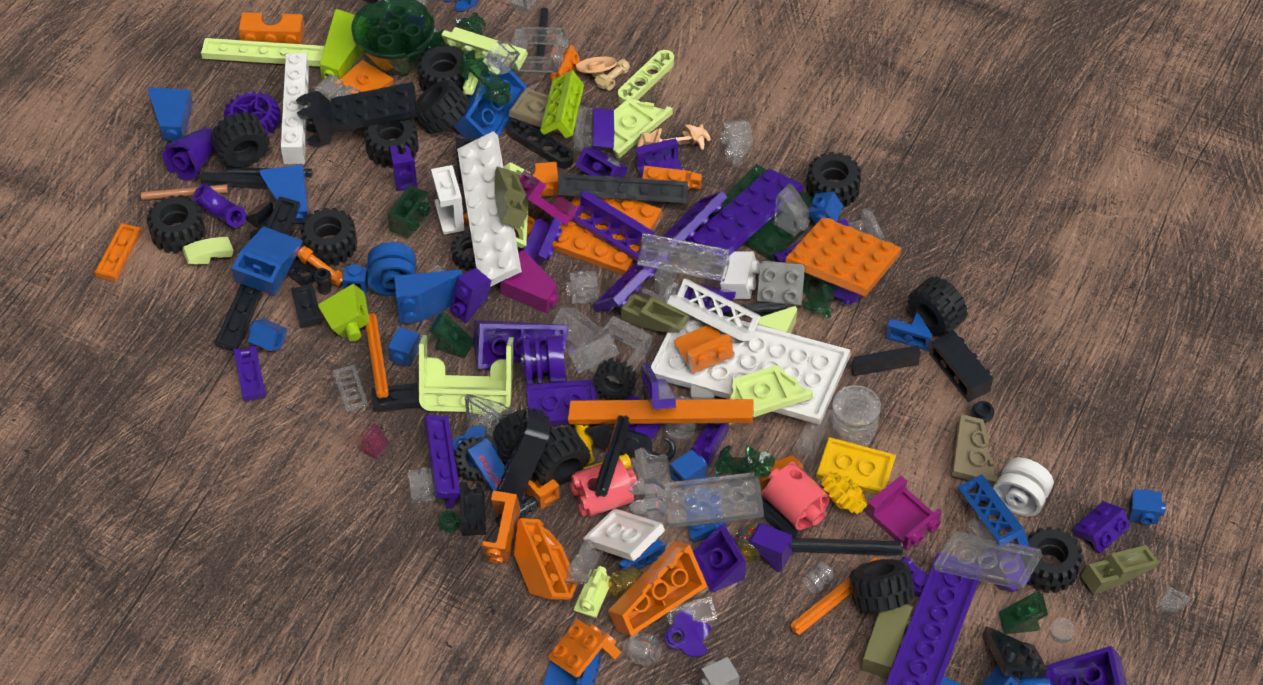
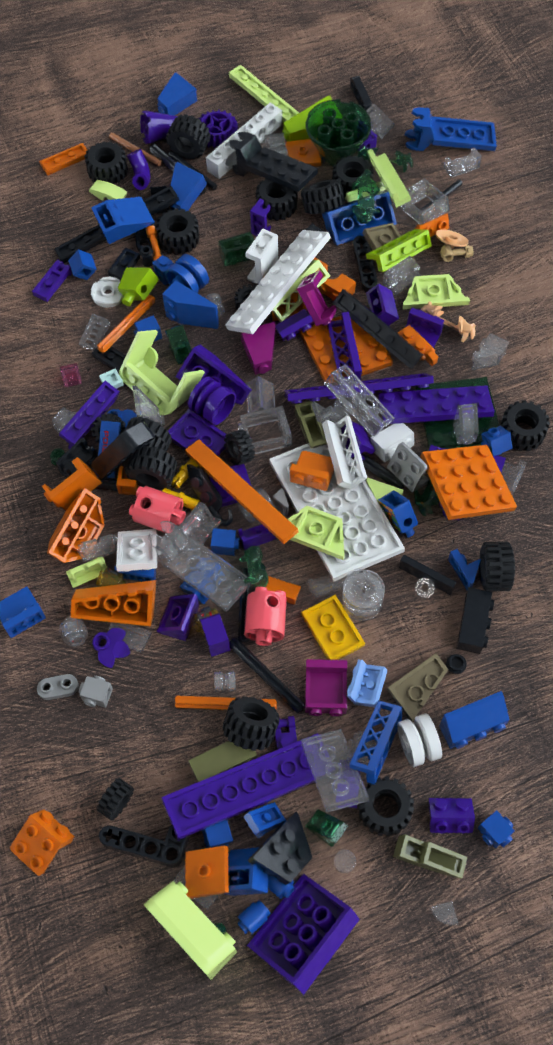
camera: 45 degrees right, 10 degrees up
(288, 30) = (291, 92): orange arch -> none
(320, 353) = (106, 300): none -> white tile
(417, 414) = (112, 378): none -> light aqua plate
(469, 294) = (215, 325): dark purple slope -> none
(501, 57) = (383, 188): clear brick -> none
(509, 197) = (290, 280): olive slope -> none
(581, 646) = (37, 596): orange bracket -> none
(583, 287) = (289, 374): clear brick -> none
(593, 350) = (243, 417): clear hinge -> none
(602, 128) = (407, 281): dark purple slope -> none
(611, 456) = (172, 493): black axle -> none
(643, 76) = (476, 266): yellowish green beam -> none
(656, 389) = (249, 472): dark purple fence -> none
(813, 323) = (399, 513): none -> blue torso
(844, 492) = (298, 639): yellow gear -> none
(901, 373) = (418, 588): none -> clear plate
(935, 483) = (366, 684): none -> light blue bracket
(969, 655) = (264, 819): none -> blue slope
(1048, 434) = (475, 720): none -> blue slope

